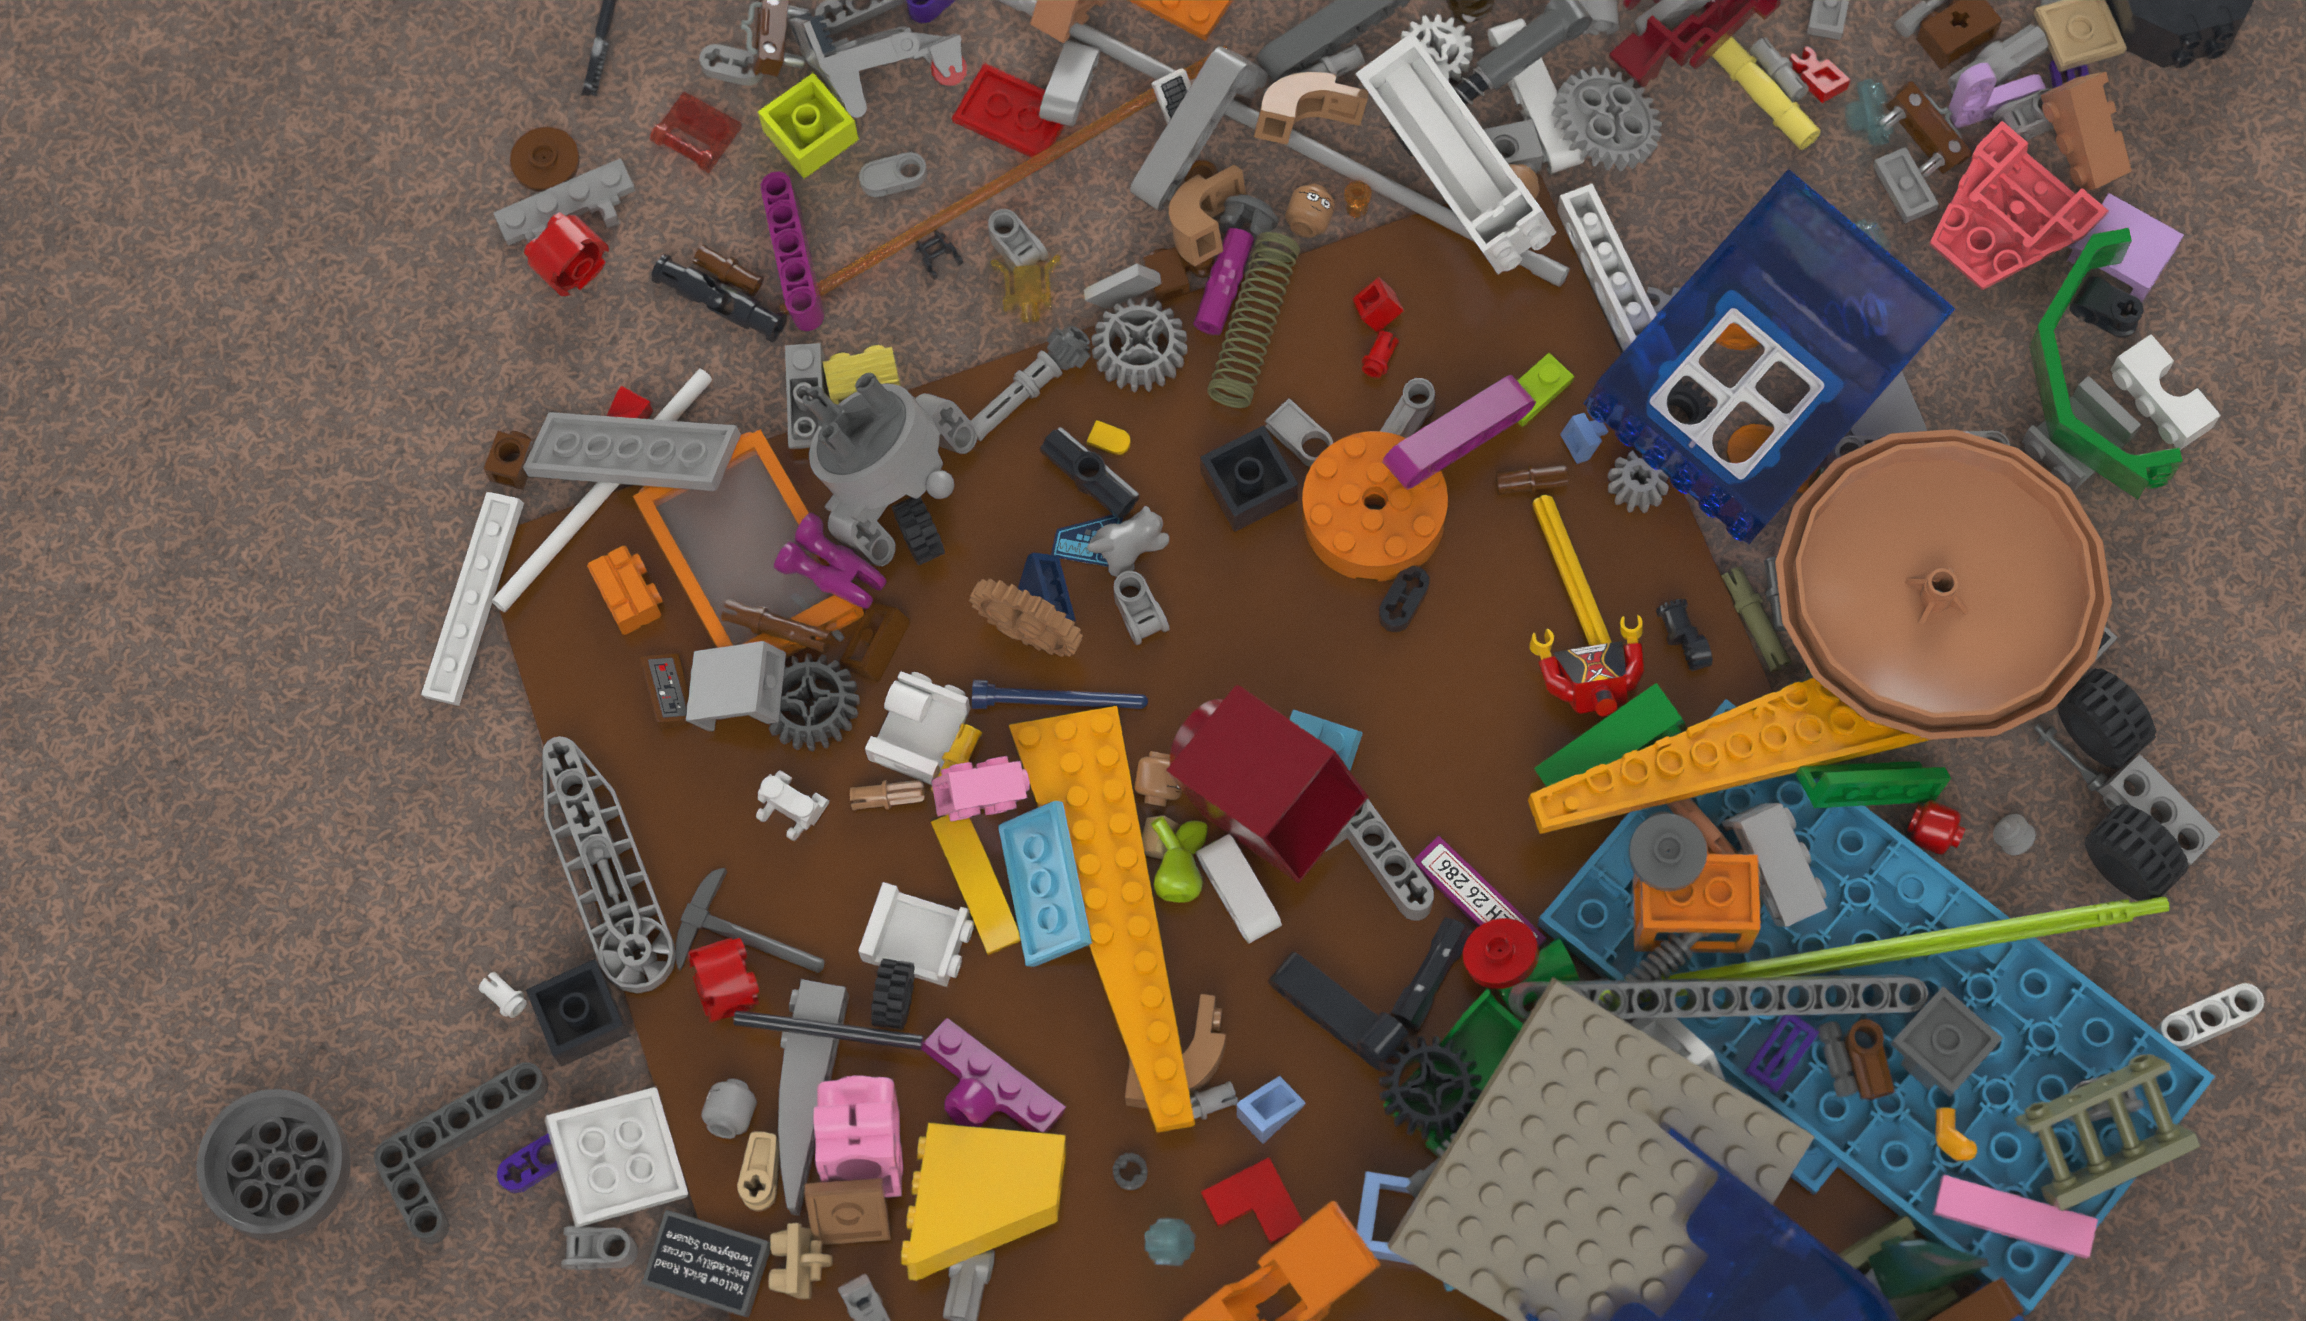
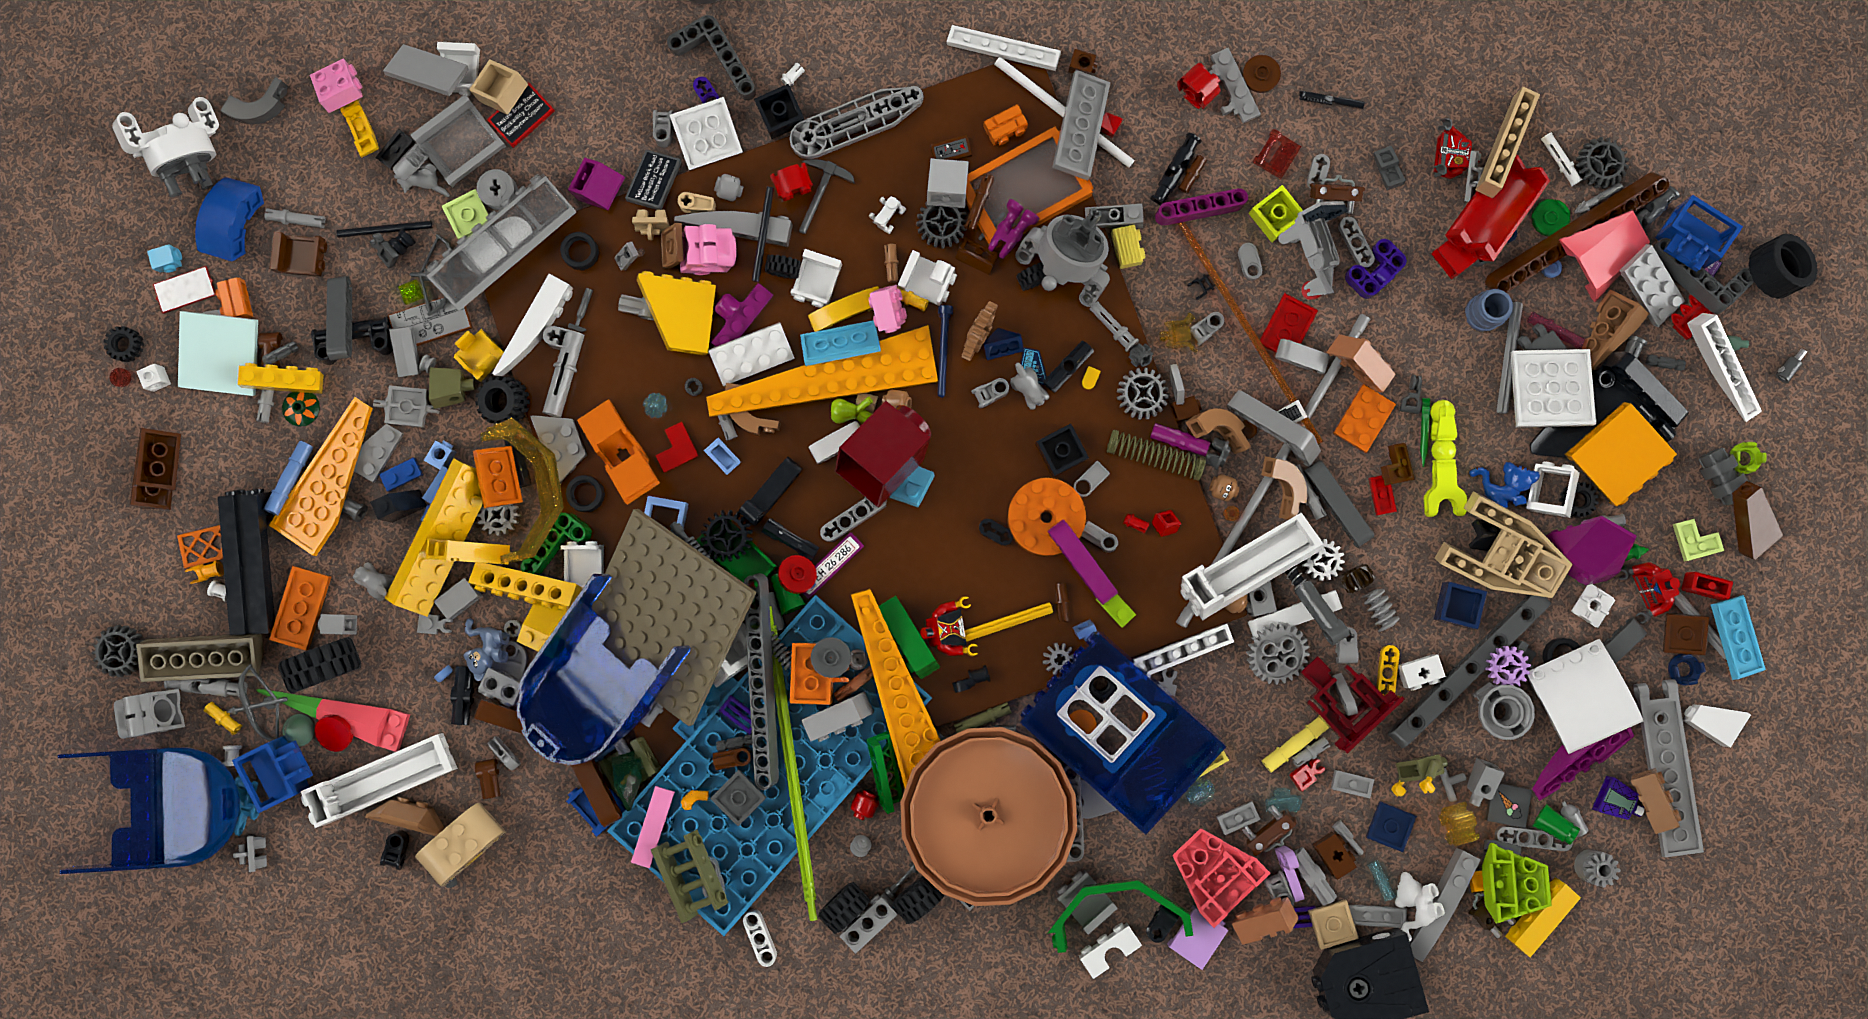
camera: 90 degrees right, 15 degrees up
(1065, 1055) = (751, 354): none -> white plate

